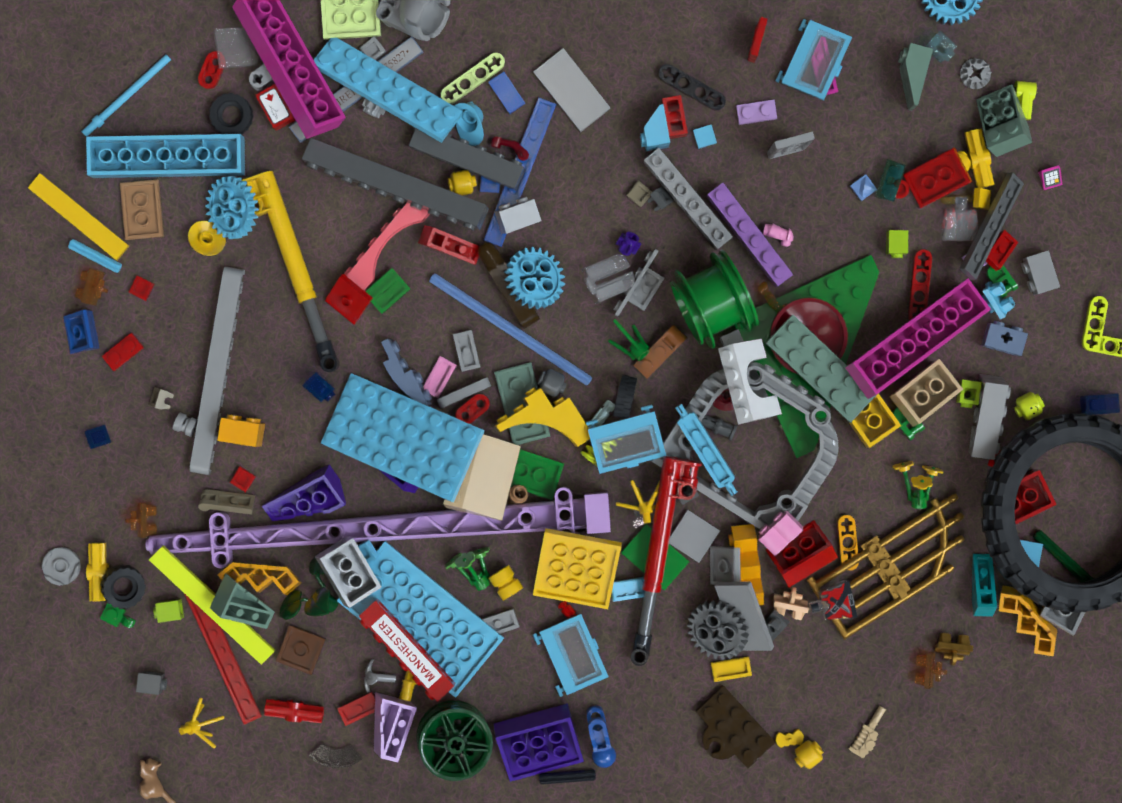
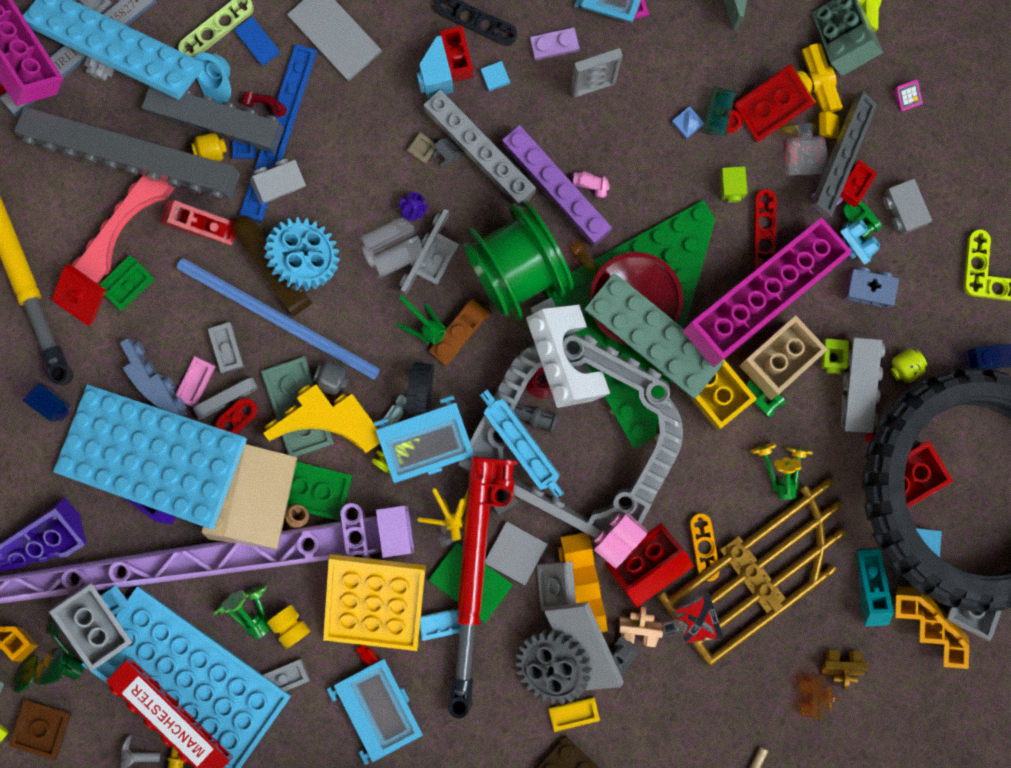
camera: 10 degrees left, 5 degrees down
(1062, 556) = (965, 545): dark green axle -> none

